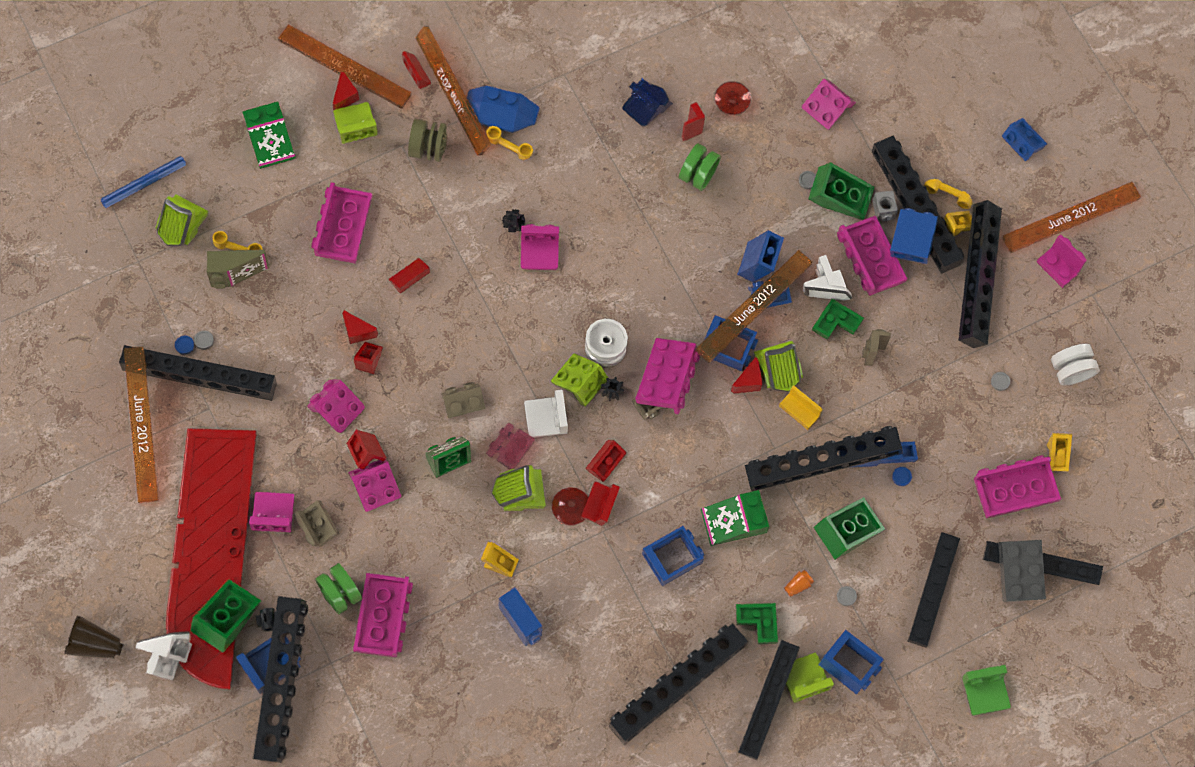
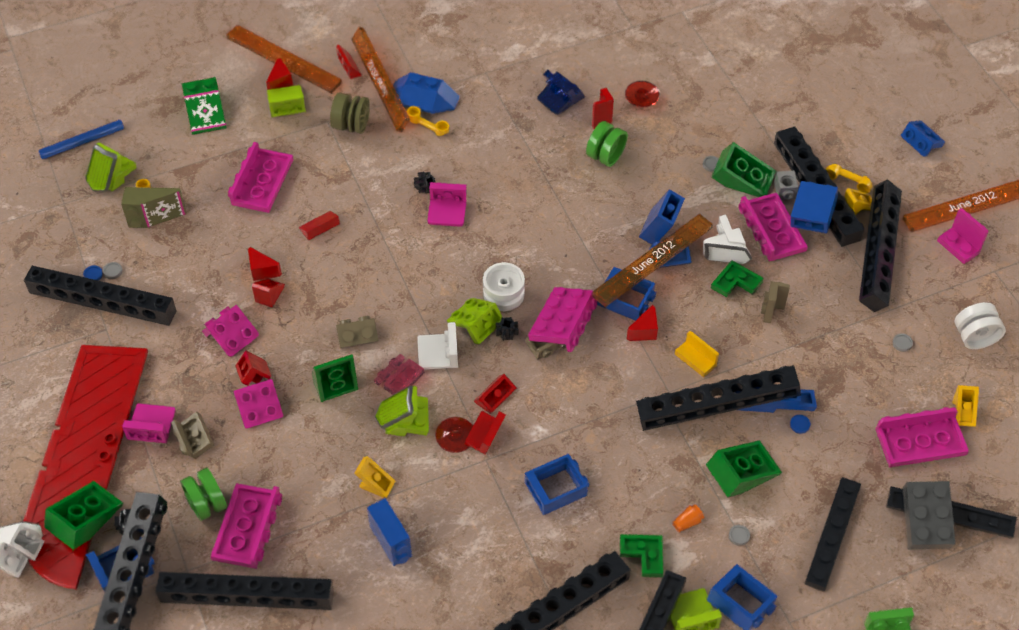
camera: 10 degrees right, 15 degrees down
(141, 425) = (34, 337): clear orange tile -> none
(390, 682) = (245, 590): none -> black brick
(735, 518) = (625, 452): green slope -> none
(780, 366) = (677, 313): lime piece -> none
(827, 103) = (732, 101): dark pink bracket -> none

